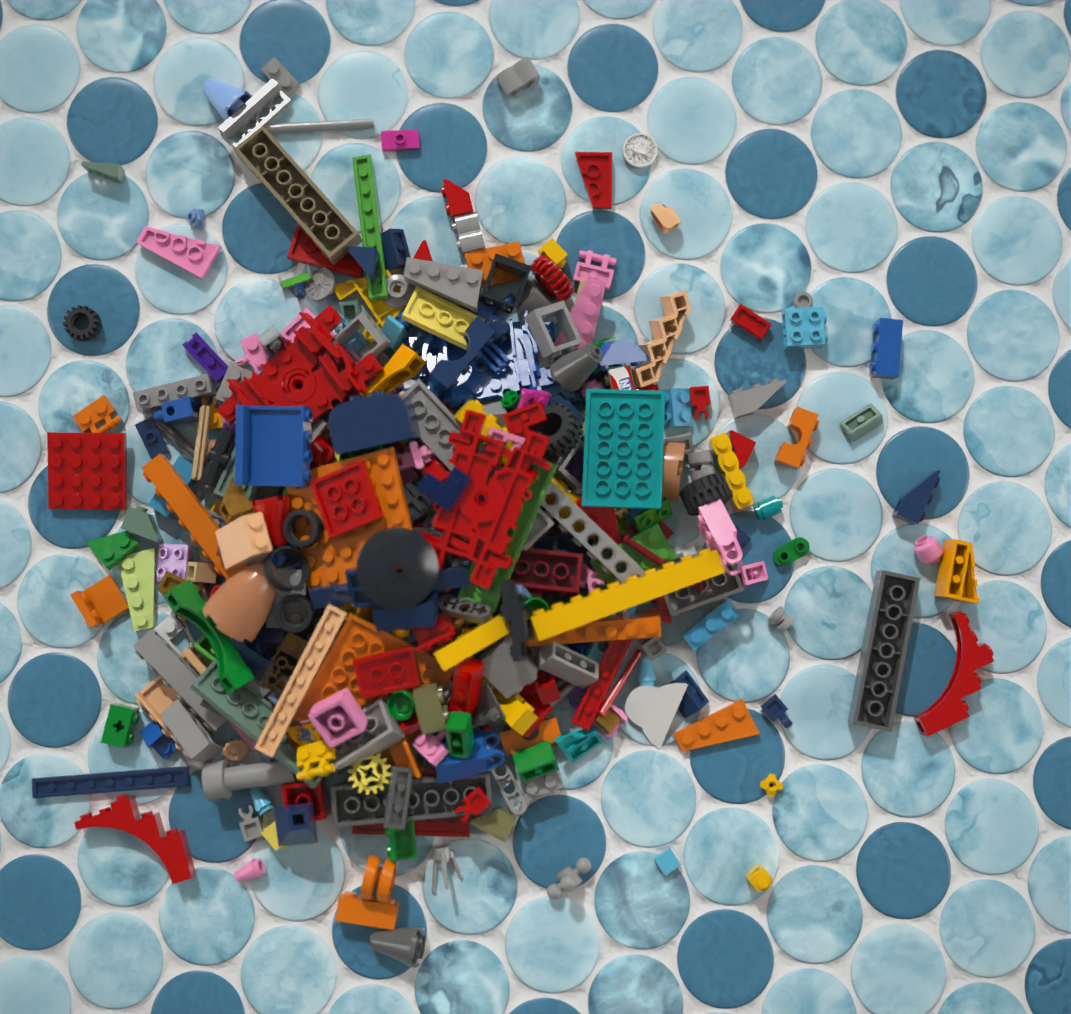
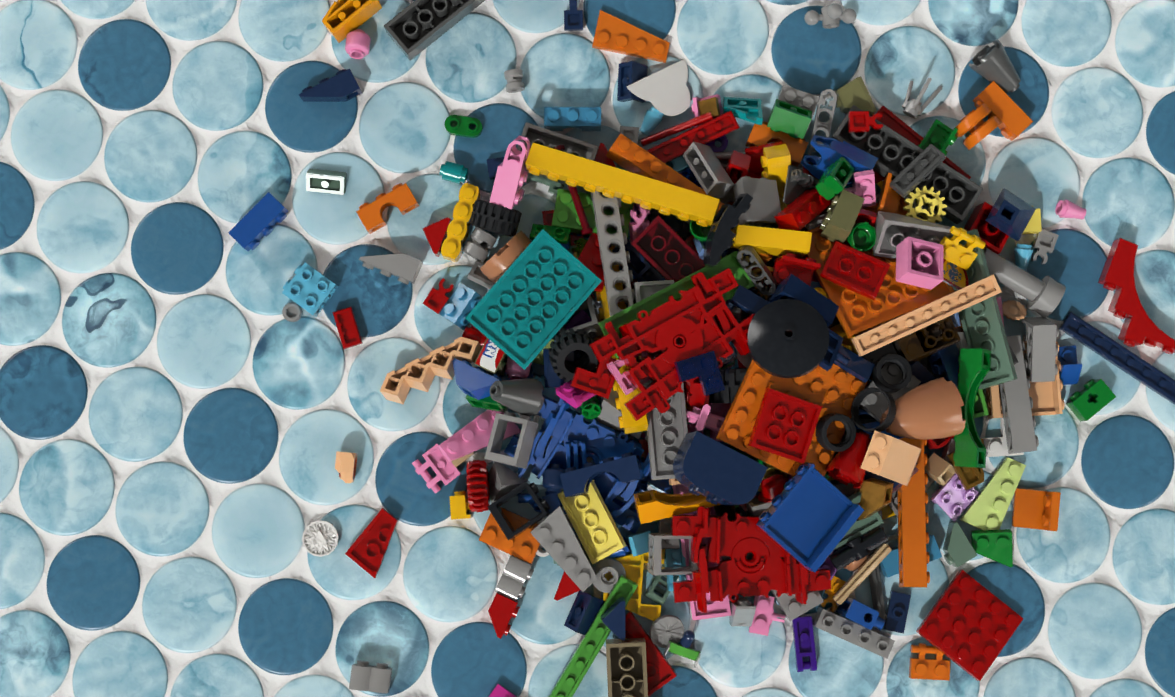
camera: 145 degrees left, 0 degrees up
(753, 573) = (506, 131): bright pink slope -> none

